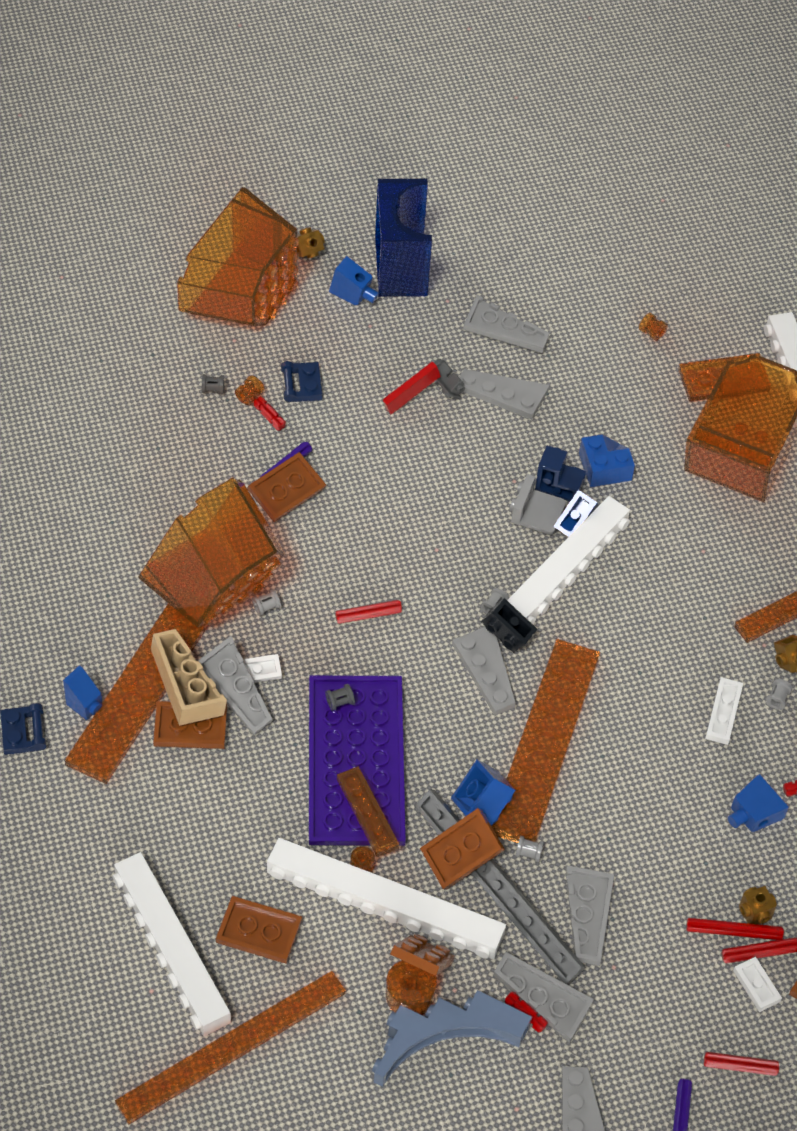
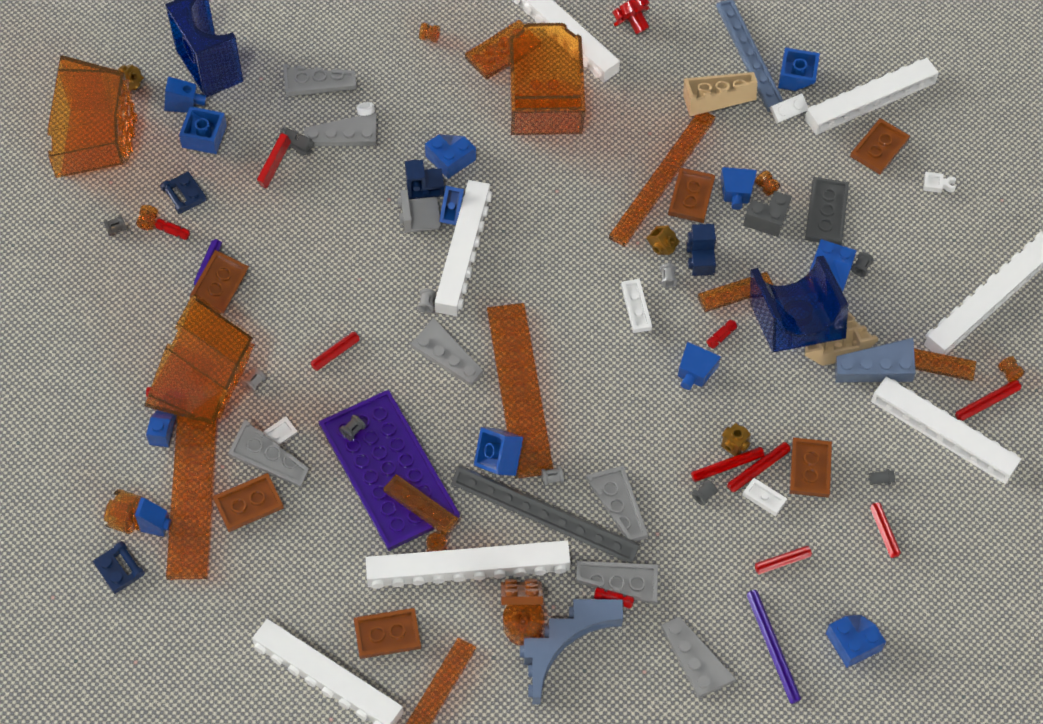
camera: 25 degrees left, 5 degrees up
(51, 672) = (121, 512): none -> clear orange brick
(143, 608) = (160, 428): none -> blue slope
(187, 685) = (231, 473): tan wedge -> none
(355, 326) = (203, 130): none -> blue slope
(462, 849) = (506, 499): dark orange plate -> none
(508, 625) = (448, 313): black brick -> none
(540, 376) = (365, 109): none -> white tile
(690, 946) = (704, 492): none -> dark grey bush

